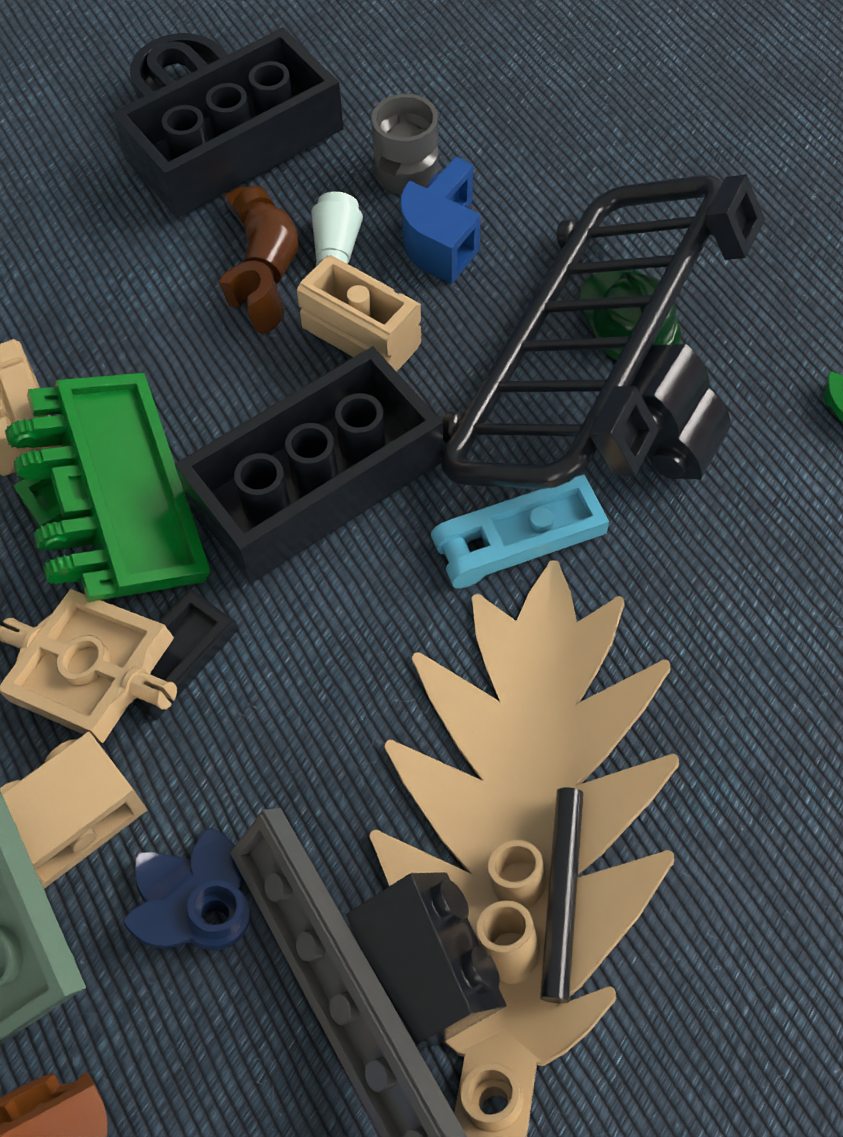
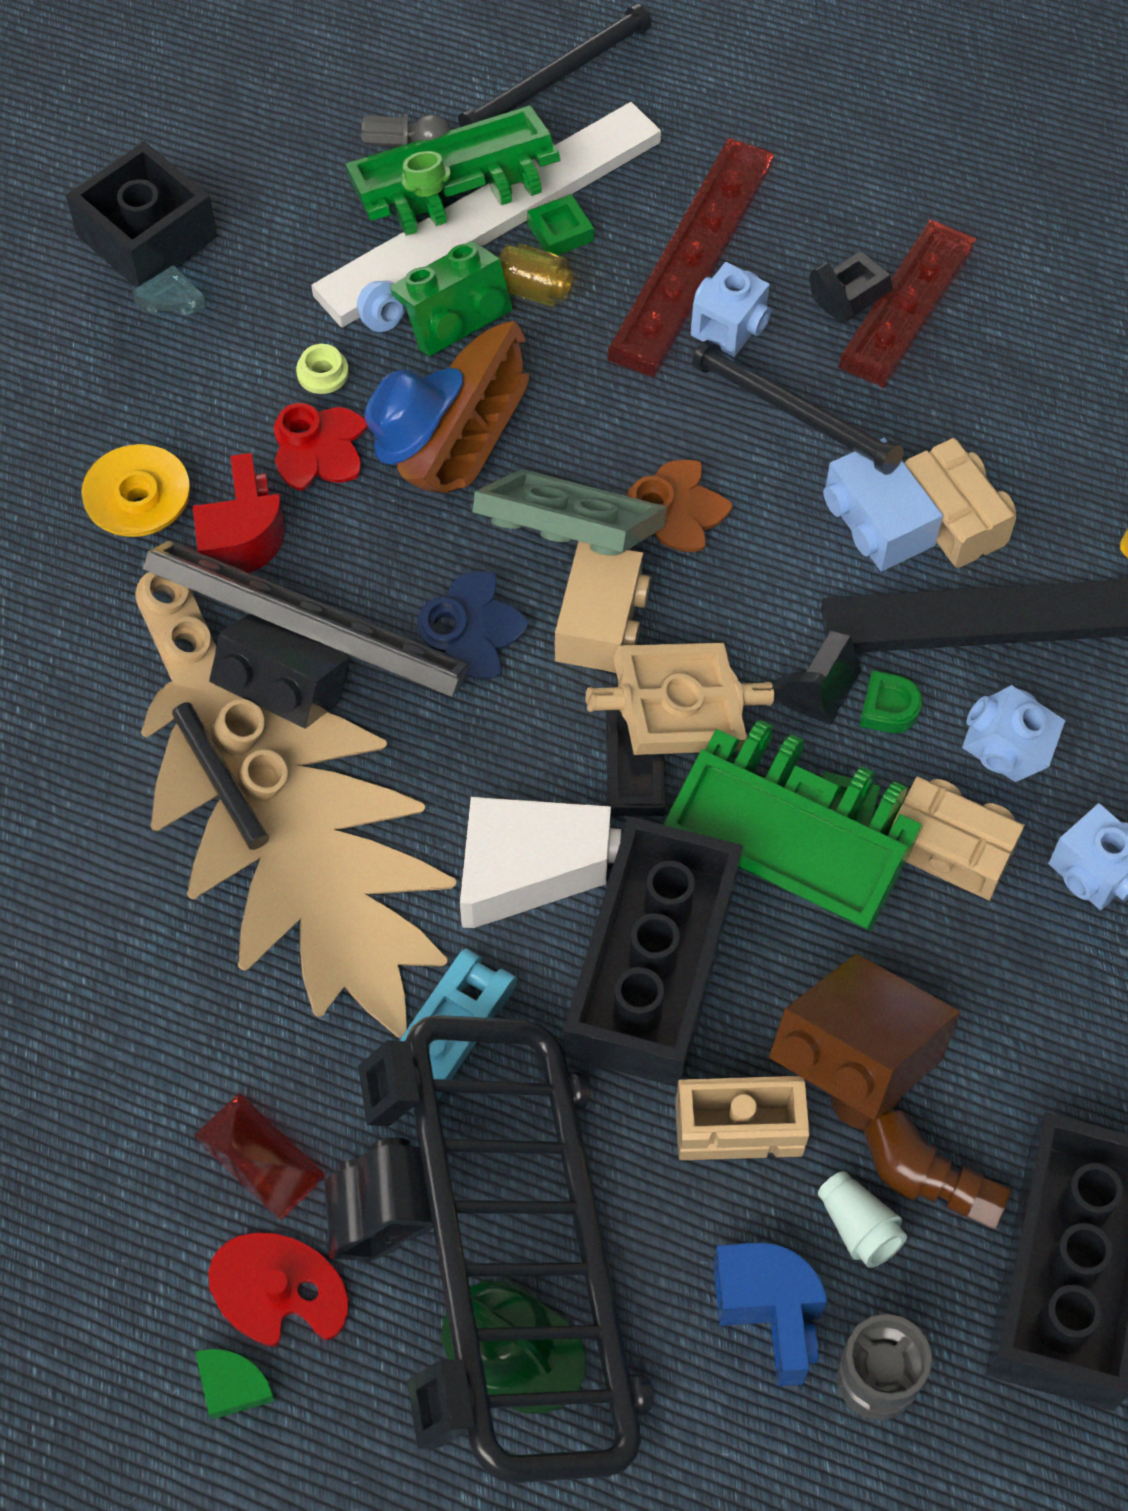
camera: 140 degrees right, 0 degrees up
(227, 291) = (864, 1035): none -> reddish brown brick
(339, 615) = (531, 855): none -> white slope
(741, 544) = (259, 1156): none -> clear red slope
(792, 458) = (259, 1281): none -> red piece

